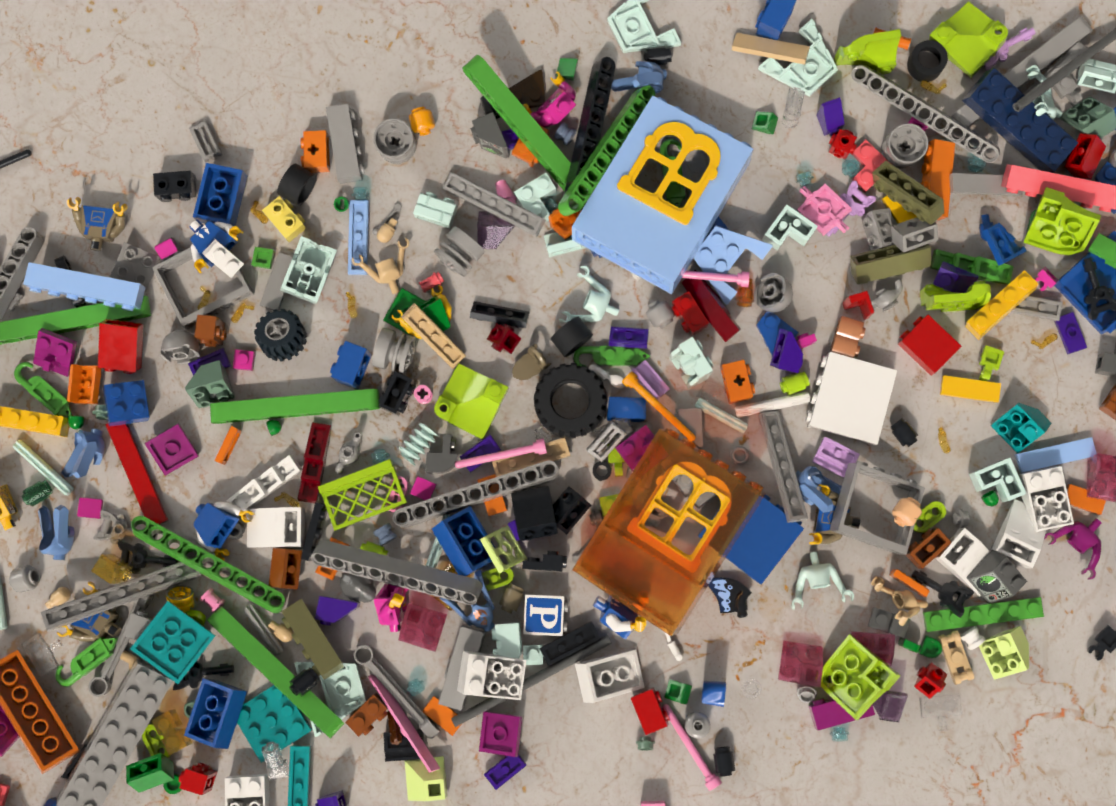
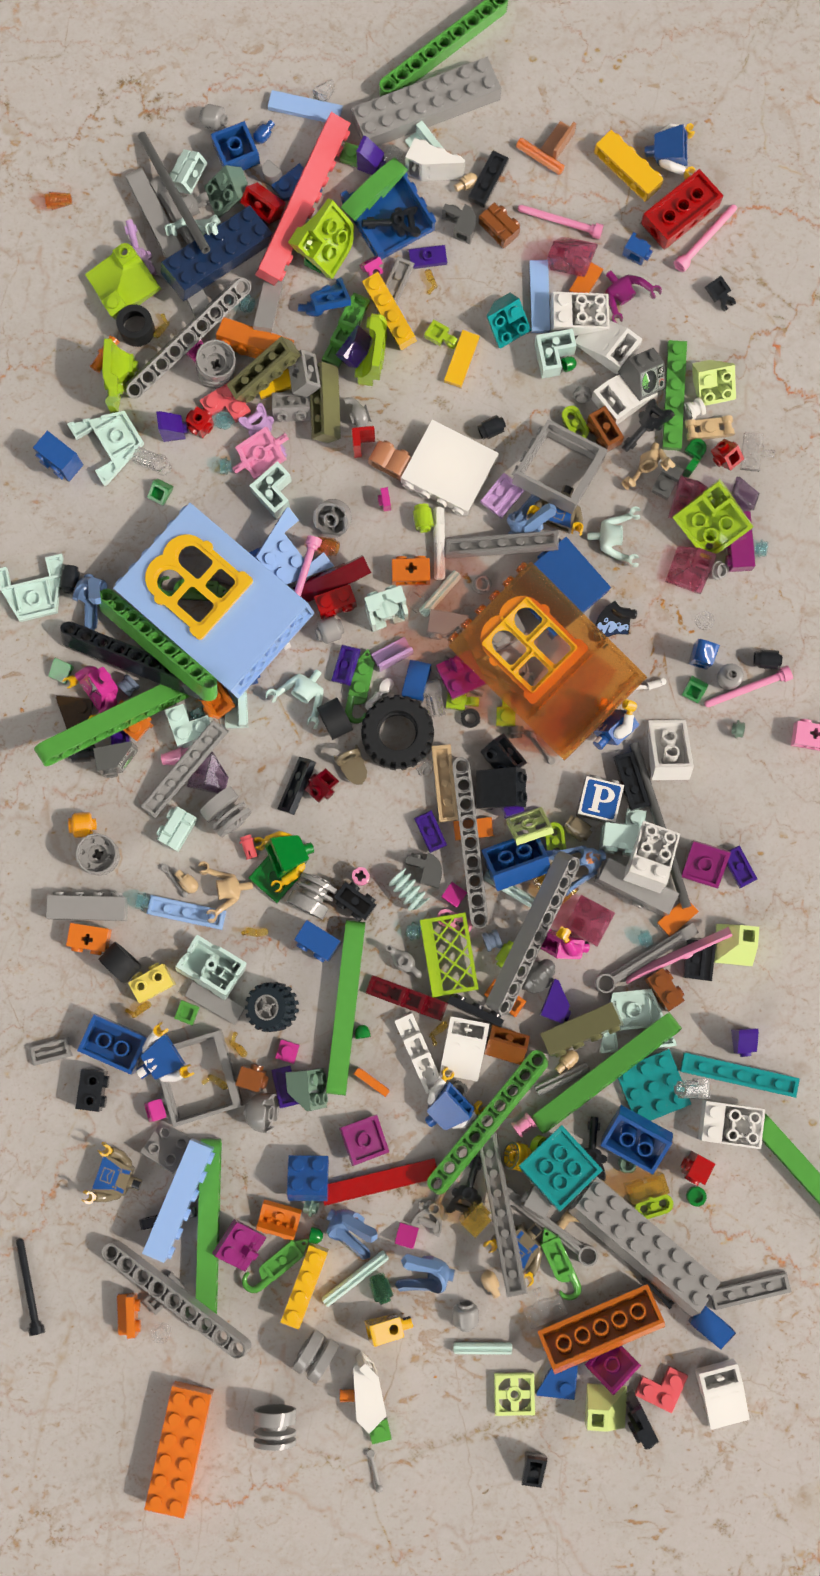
camera: 90 degrees left, 0 degrees up
(120, 346) = (248, 1174): red brick -> none
(150, 772) = (682, 1216): green brick -> none
(223, 258) = (182, 1049): white plate -> none
(303, 682) = (623, 1043): black brick -> none
(338, 202) = (147, 926): green hinge -> none
(394, 730) = (683, 965): reddish brown axle -> none
(433, 335) = (305, 853): tan tile -> none
(471, 401) = (376, 830): lime slope -> none
(537, 447) = (437, 772): bright pink piece -> none
(551, 562) = (551, 784): black plate -> none
(601, 436) = (441, 706): light grey tile -> none
(632, 381) = (391, 669): light orange piece -> none
(649, 711) = (709, 717): red brick -> none
(769, 329) = (371, 525): blue wing -> none
(770, 48) = (88, 469): tan tile -> none
(787, 352) = (393, 517): dark purple slope -> none
(906, 512) = (569, 439): light nougat head -> none
(909, 582) = (633, 454): orange tile -> none
(929, 344) = (412, 386): red brick -> none
(942, 436) = (506, 395): clear yellow piece -> none

